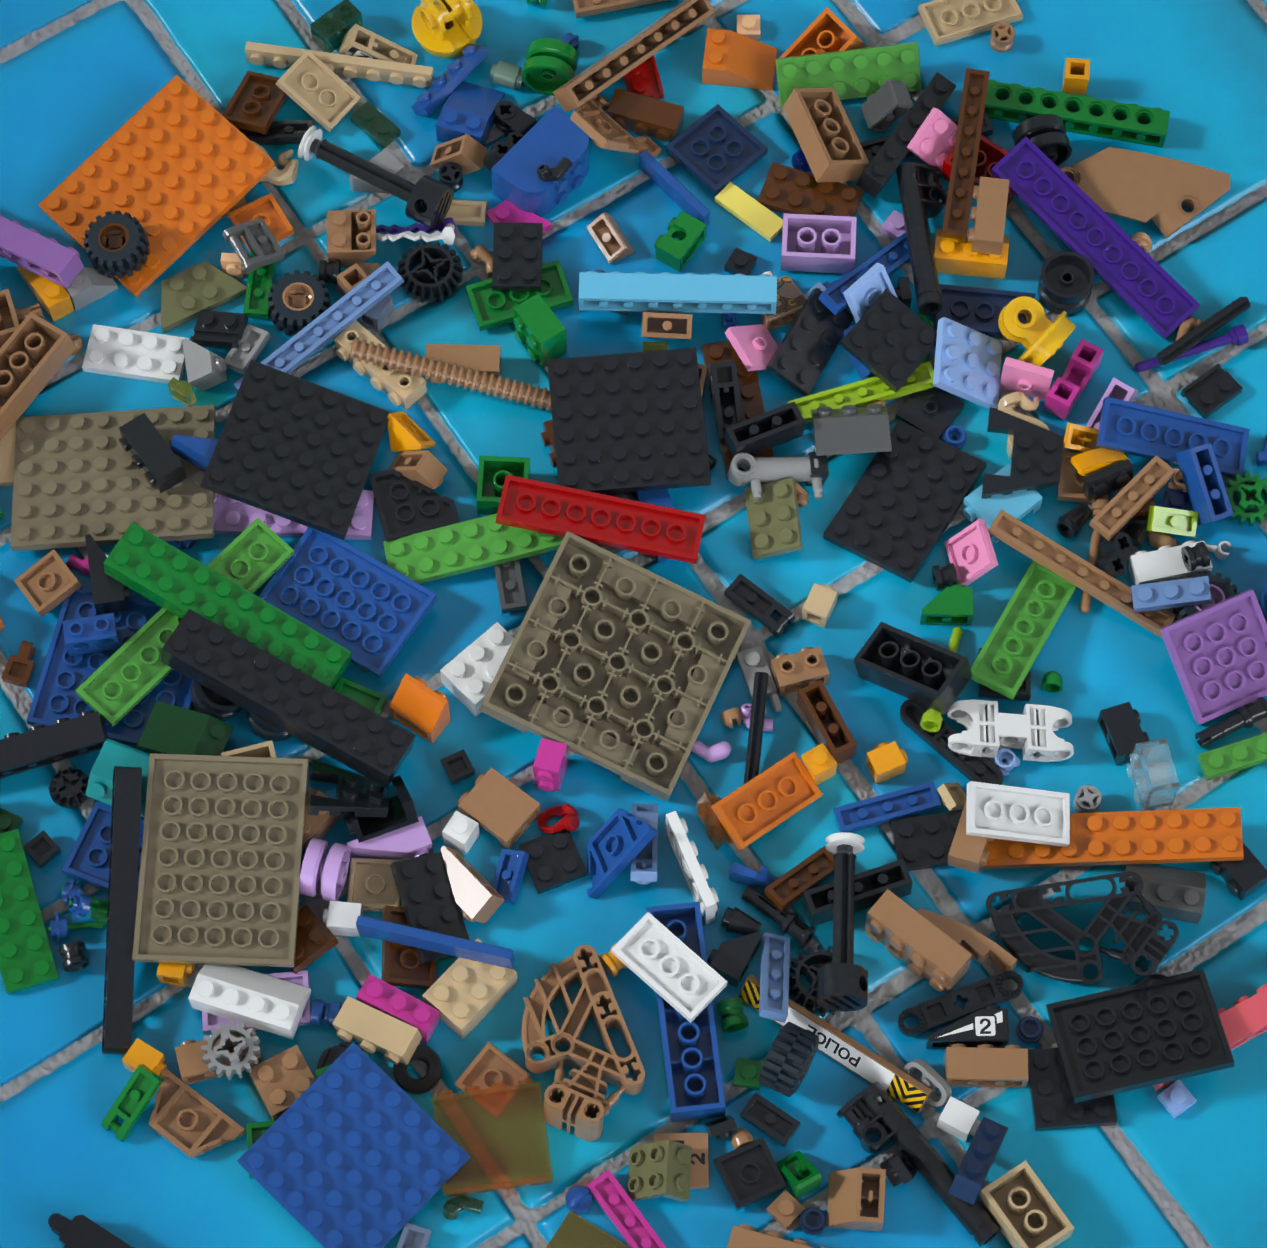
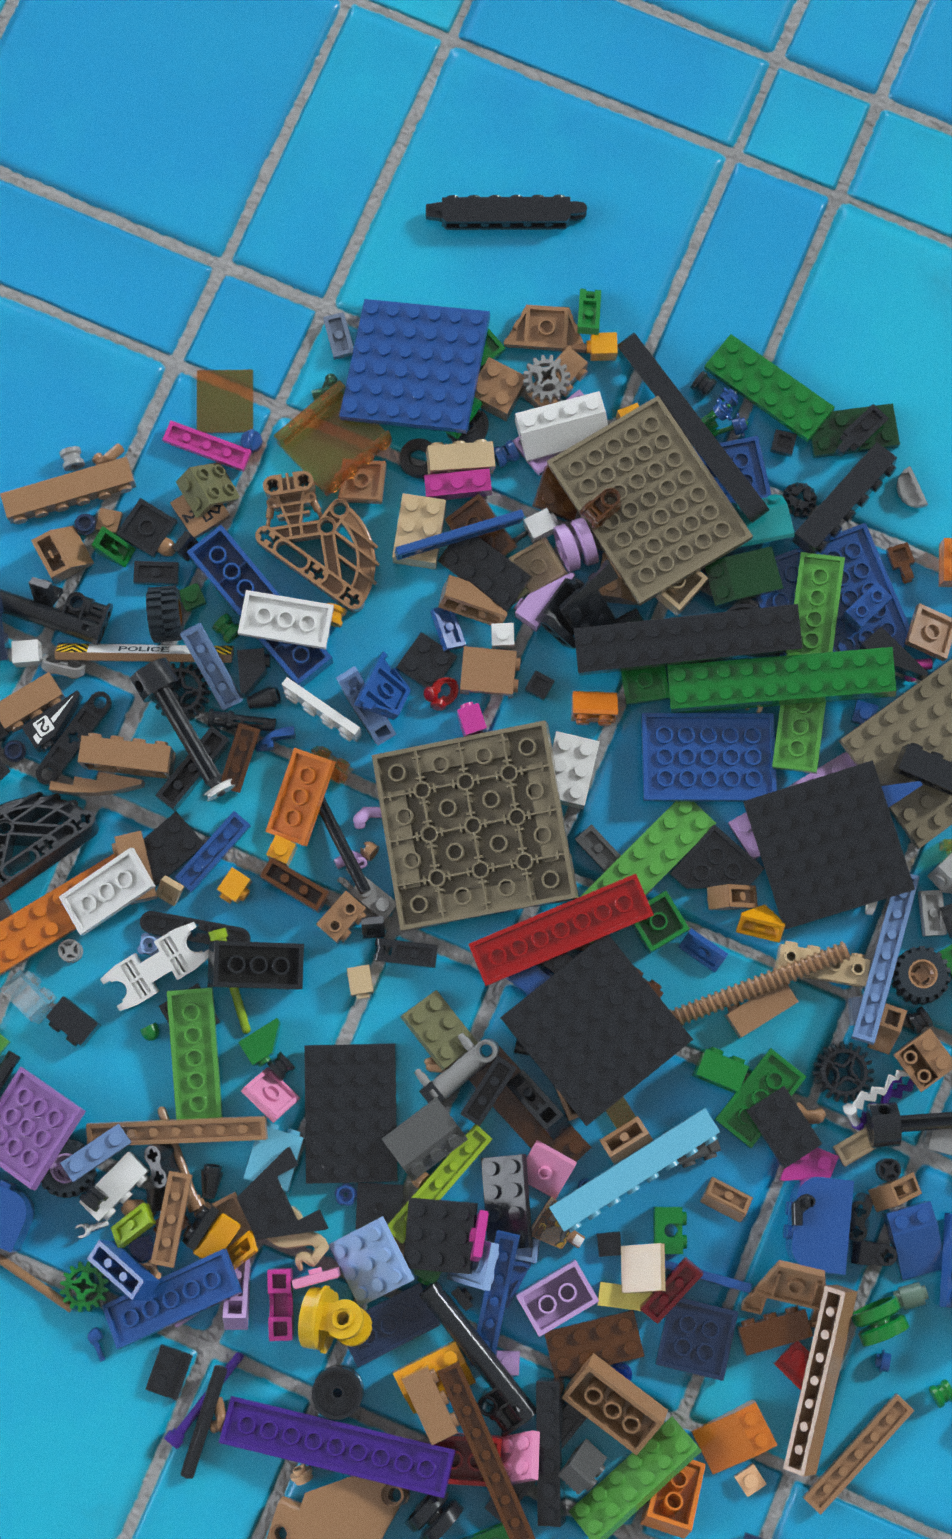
camera: 145 degrees right, 15 degrees up
(278, 871) = (598, 511): none -> reddish brown piece
(477, 438) = (703, 950): none -> blue plate
(713, 188) = (676, 1286): none -> dark red plate
(725, 219) = (643, 1268): none -> tan tile
(774, 645) = (373, 927): none -> black plate
(857, 309) = (477, 1235): none -> dark pink plate

